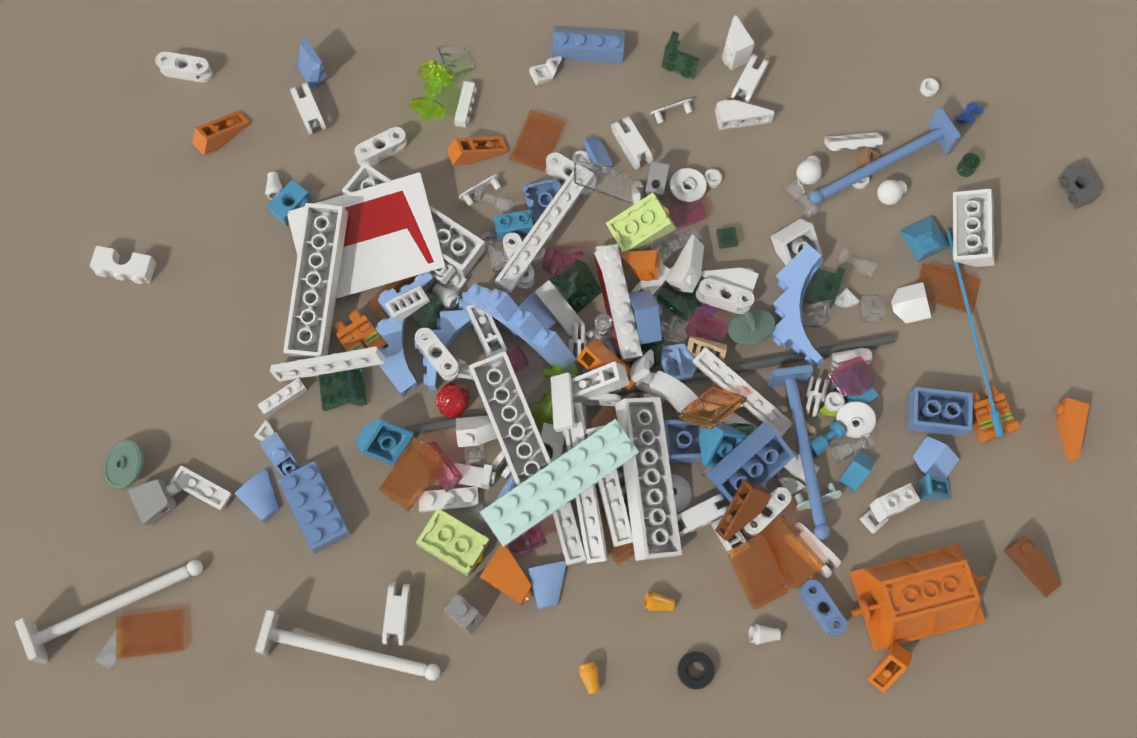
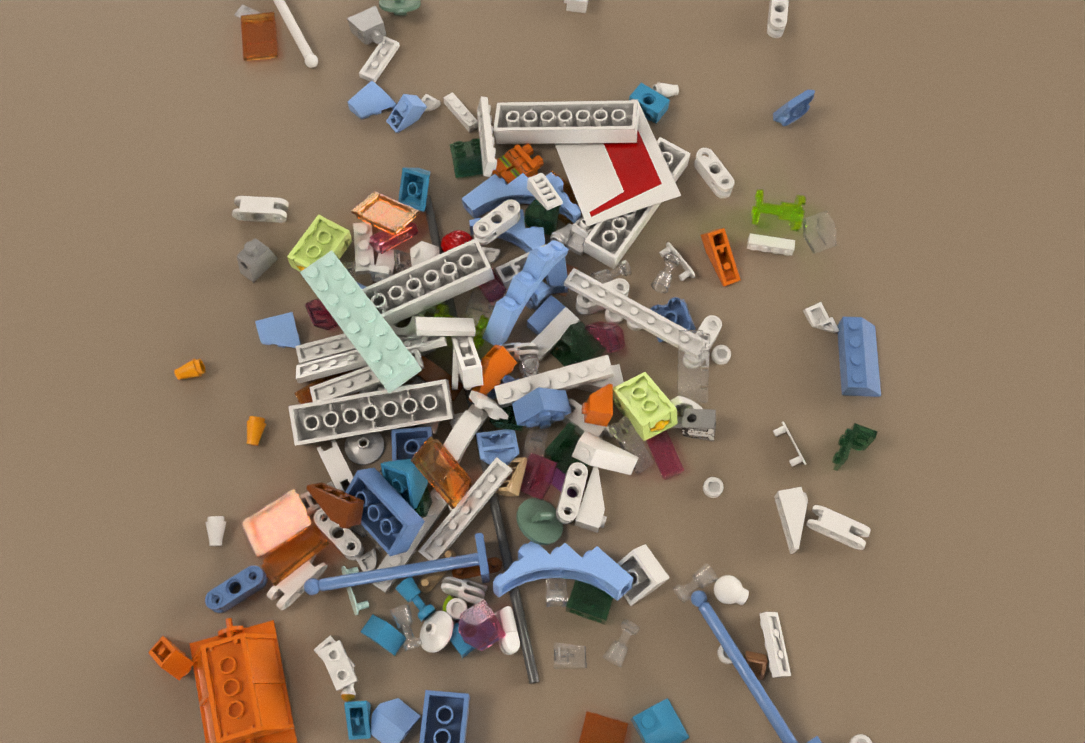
camera: 90 degrees right, 5 degrees down
(218, 132) = (715, 44): orange slope -> none
(270, 633) = (246, 112): white piece -> none
(308, 109) = (747, 110): white piece -> none
(314, 507) = (358, 140): medium blue brick -> none
(507, 577) = (287, 296): orange slope -> none
(515, 222) = (639, 287): dark azure brick -> none
(536, 140) = (739, 311): clear orange piece -> none
(597, 152) = (728, 368): medium blue slope -> none
(631, 142) = (744, 401): white piece -> none
(690, 178) = (706, 452): white dish -> none
(707, 664) = (179, 457): black tyre -> none
(727, 237) = (642, 500): clear green plate -> none
(737, 46) = (876, 506): white slope -> none
(846, 299) = (579, 630): white tile -> none
(891, 191) = (713, 686): white piece -> none
(911, 303) = (576, 705): white slope -> none

